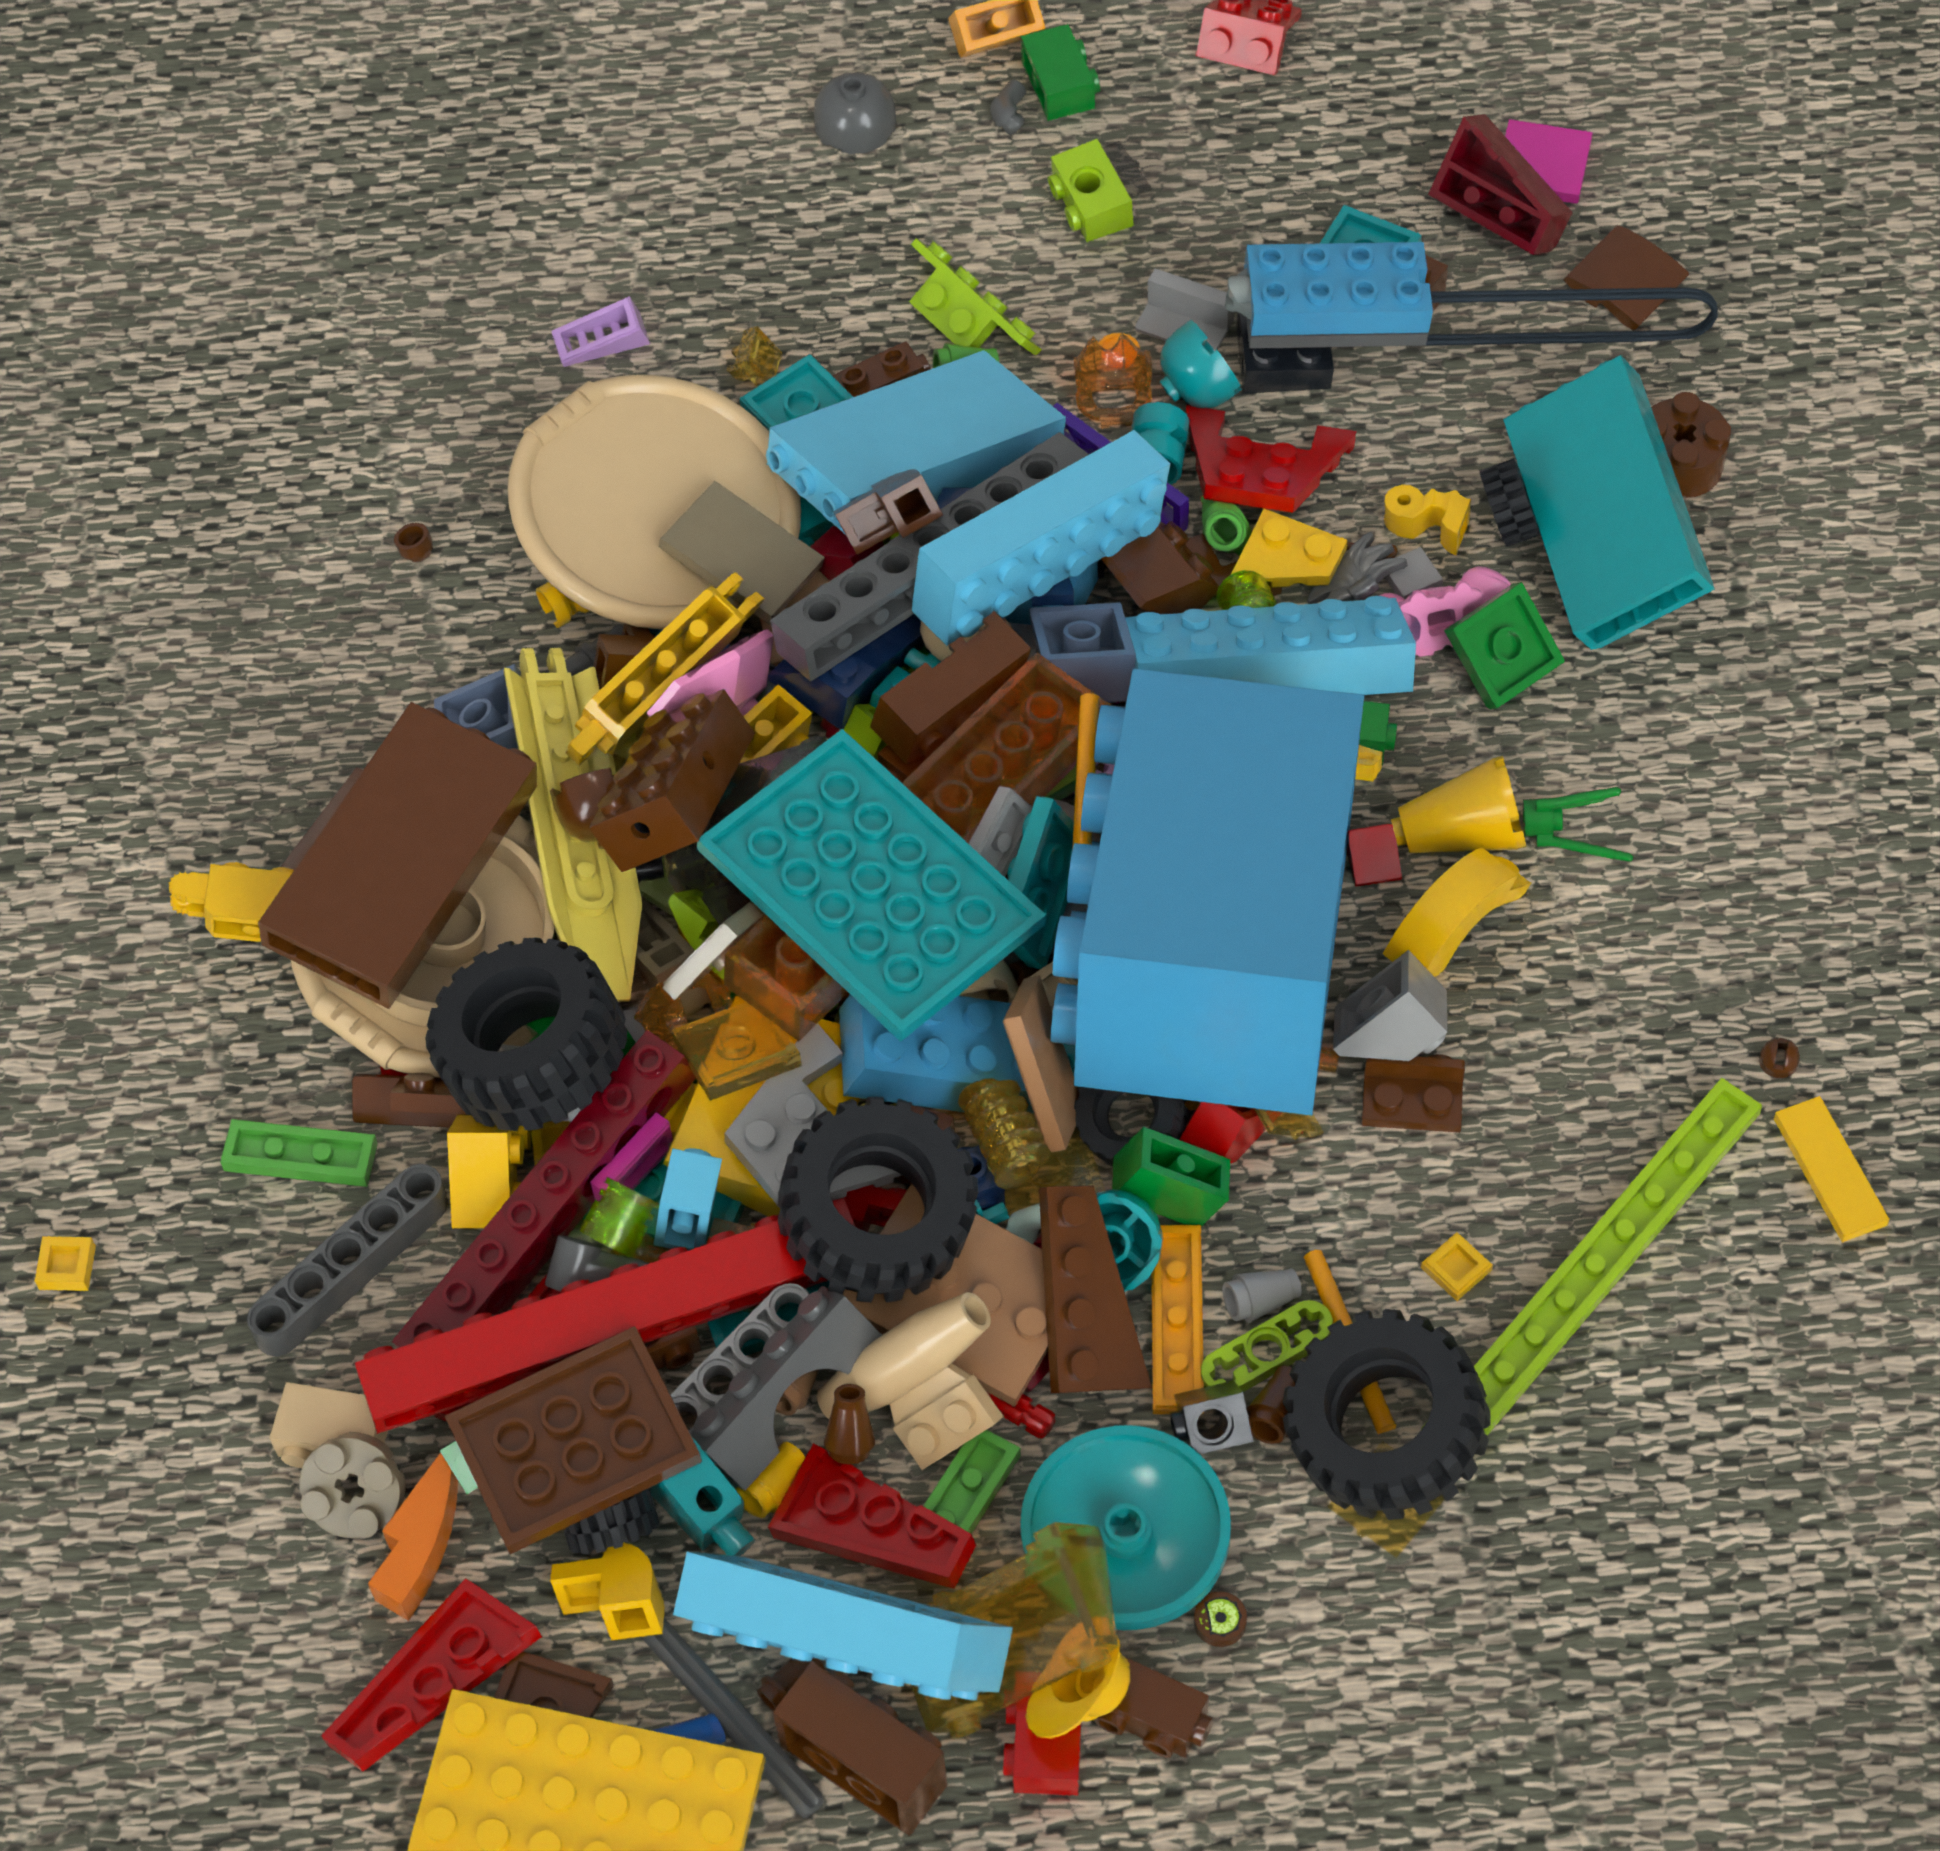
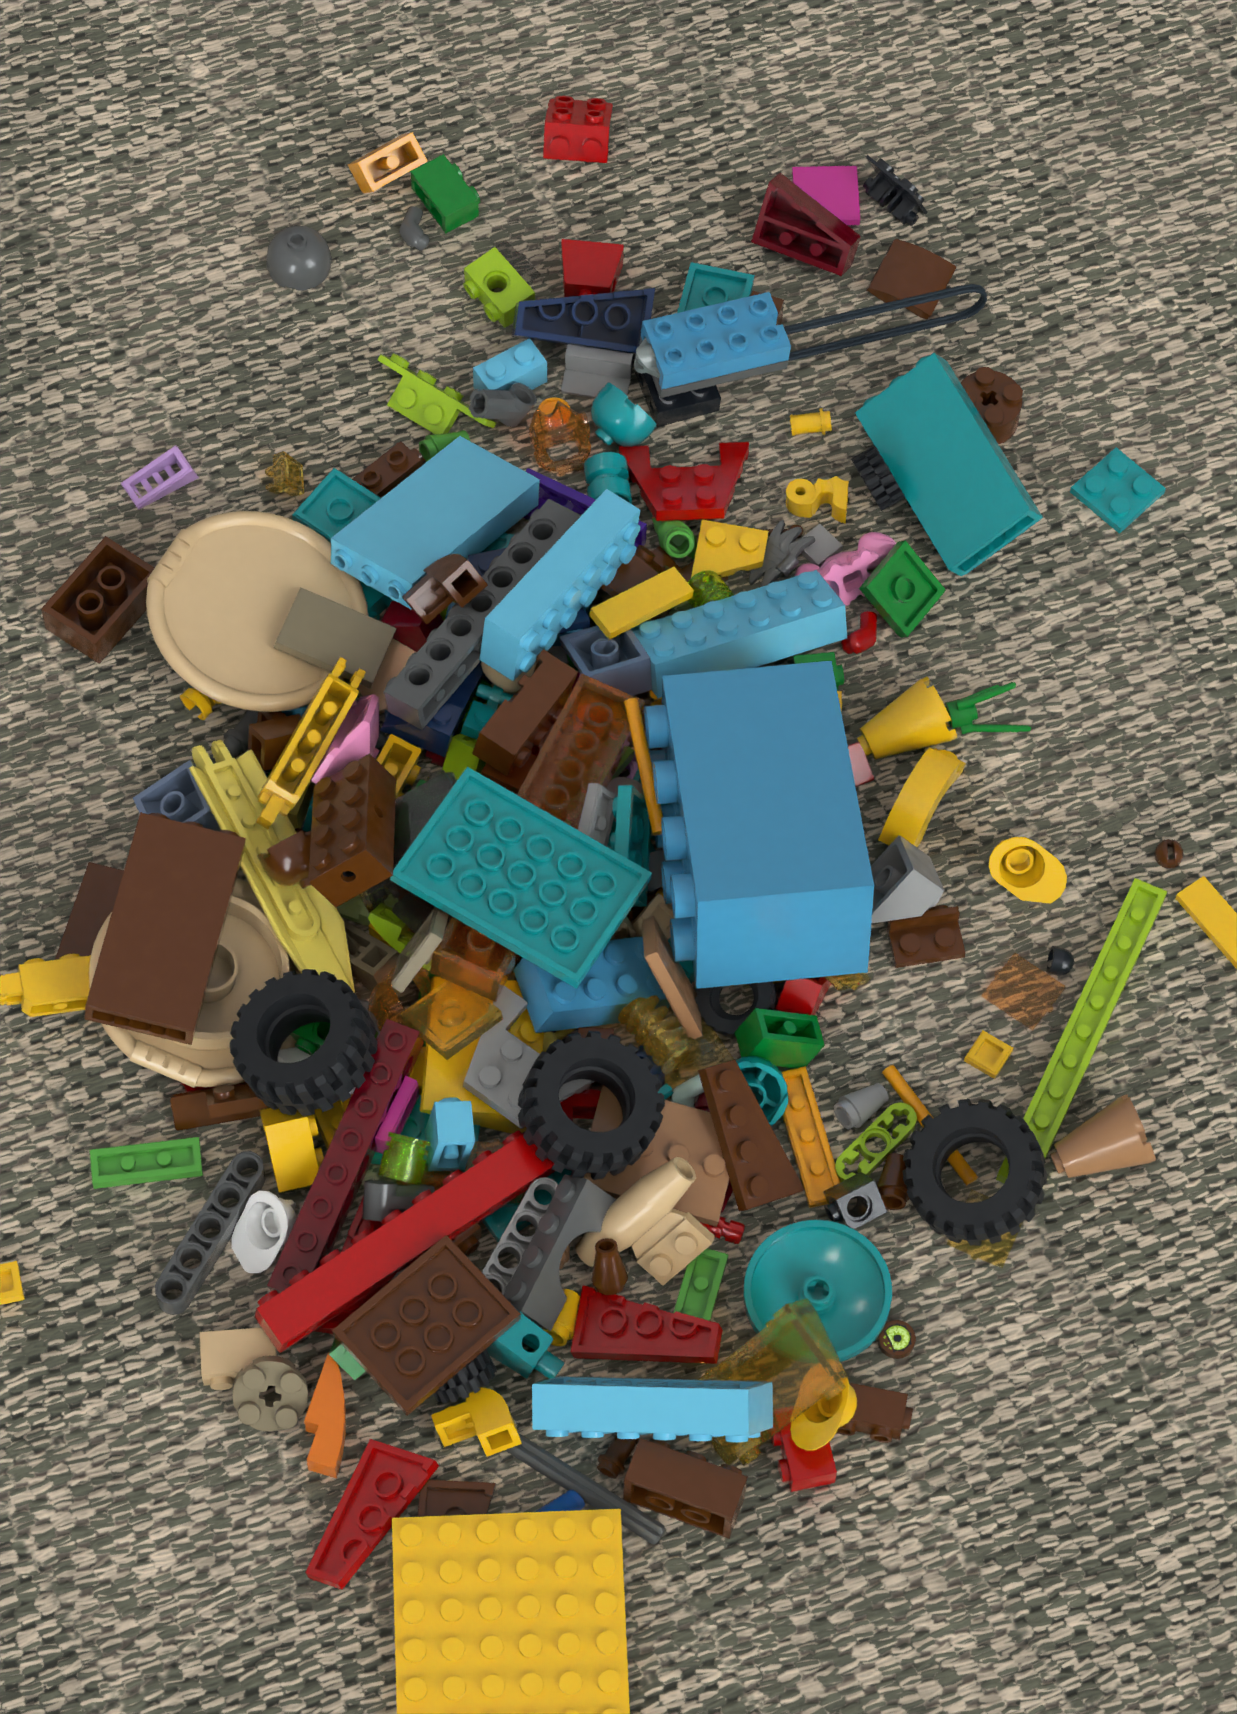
camera: 20 degrees left, 5 degrees up
(414, 542) = (67, 675): reddish brown hinge -> none
(414, 1270) = (262, 1230): none -> white piece
(466, 457) = (99, 600): none -> reddish brown brick
(1056, 327) = (505, 405): none -> dark grey piece
(1073, 293) = (516, 365): none -> medium azure brick
(1147, 587) = (641, 603): none -> yellow tile
(1180, 241) = (590, 320): none -> dark blue wedge
(1213, 194) = (590, 267): none -> red torso
(1437, 698) = (864, 637): none -> red arm
(1444, 424) = (811, 422): none -> yellow pin
(1529, 1194) = (1023, 991): none -> clear orange piece
(1583, 1418) = (1104, 1142): none -> medium nougat cone
(1590, 1165) = (1061, 961): none -> black hinge
(1595, 1045) = (1041, 873): none -> yellow piece
(1631, 170) = (900, 193): none -> black hinge
(1832, 583) = (1117, 490): none -> teal plate

